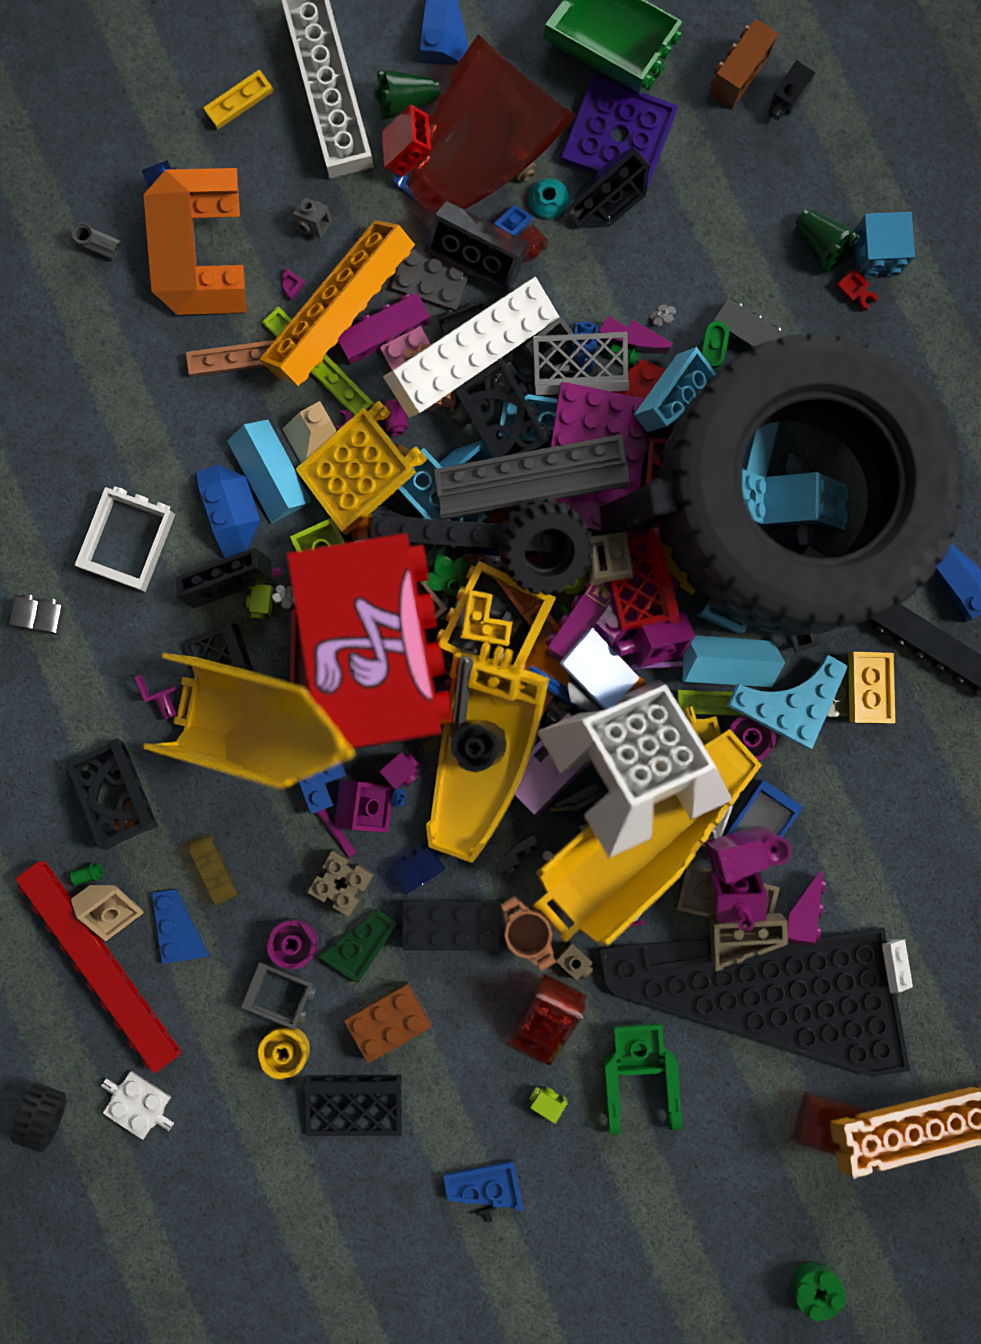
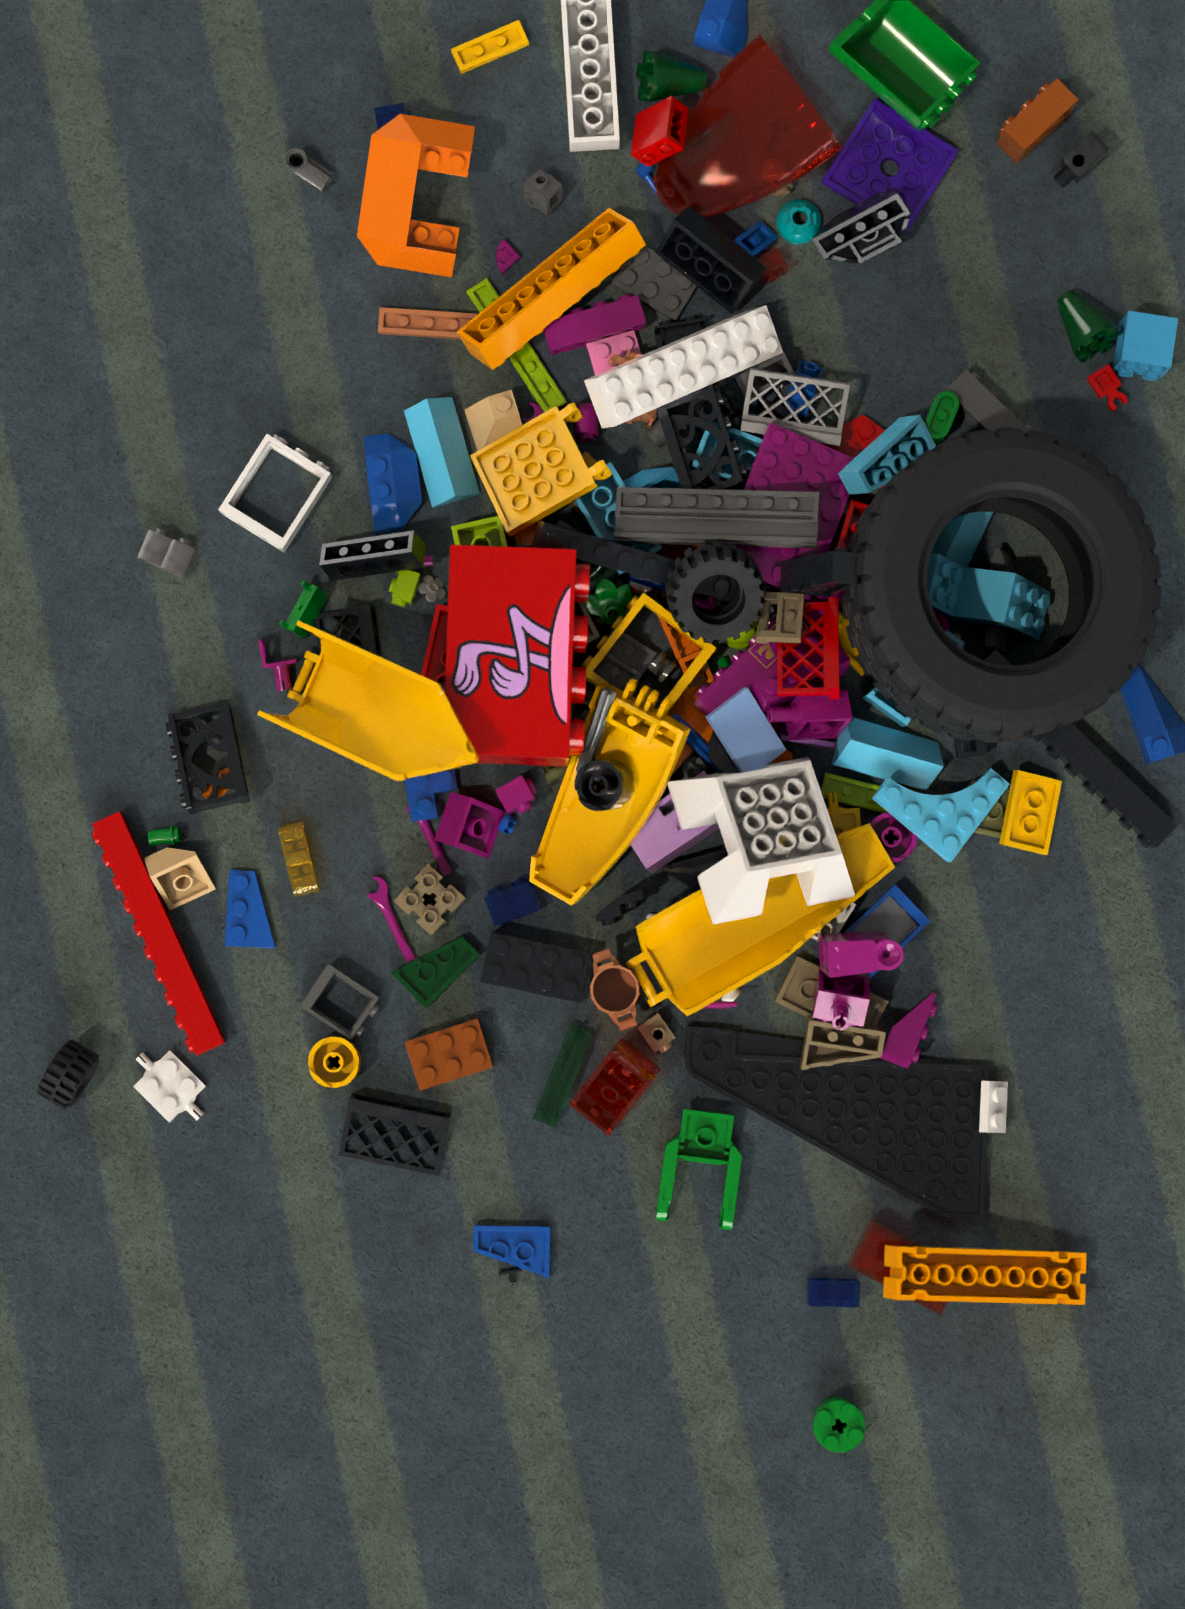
camera: 10 degrees right, 0 degrees up
(174, 639) = (305, 610): none -> green hinge
(291, 957) = (353, 946): magenta brick -> none
(298, 891) = (382, 900): none -> magenta piece
(479, 626) = (629, 659): yellow brick -> none
(497, 1018) = (563, 1076): none -> clear green piece
(547, 1103) = (597, 1173): lime brick -> none
(632, 354) = (851, 408): green pin -> none
(638, 337) = (861, 390): magenta slope -> none
(663, 314) = (894, 371): light grey plant -> none
(786, 1168) = (832, 1292): none -> clear blue brick

